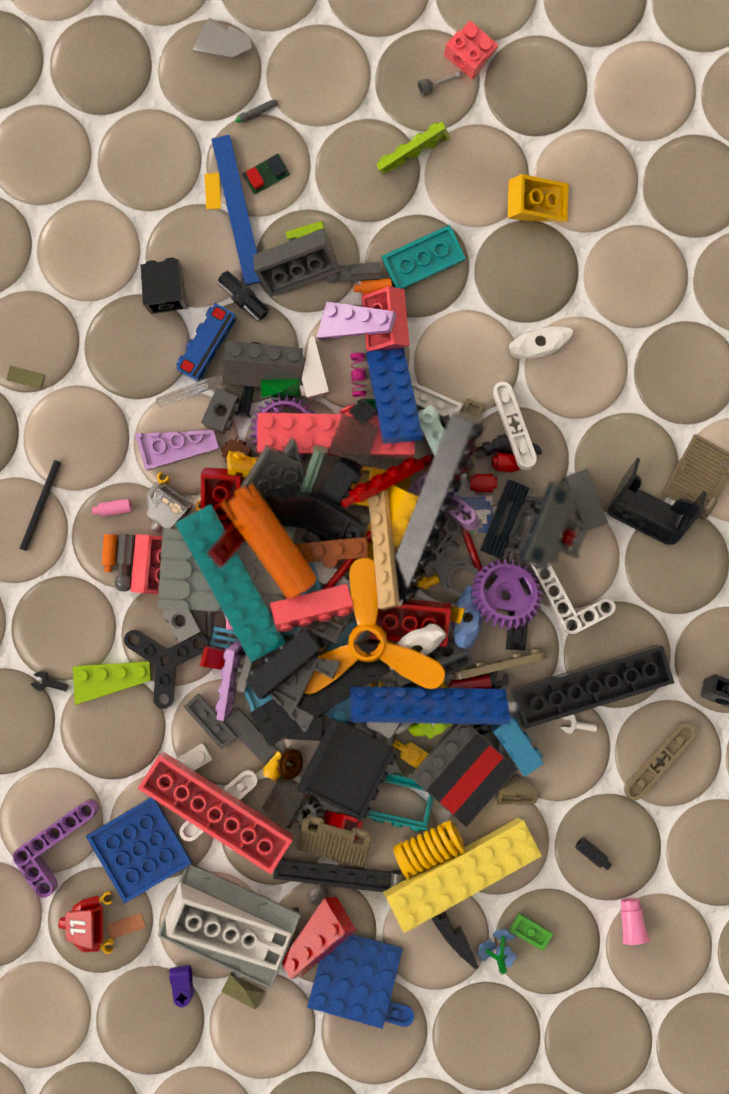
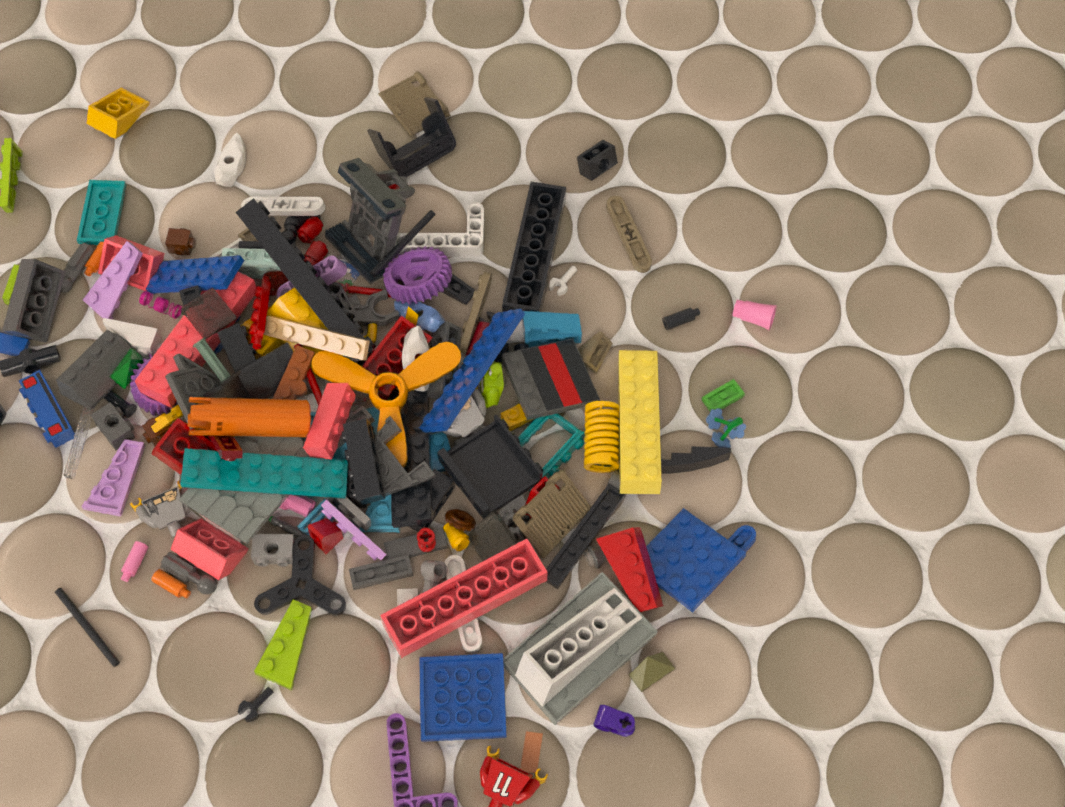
camera: 60 degrees left, 25 degrees down
(230, 768) = (432, 573): none -> light grey pin
(254, 753) = (421, 536): none -> red bush
(430, 351) = (180, 241): none -> reddish brown brick
(516, 559) = (395, 251): none -> black piece

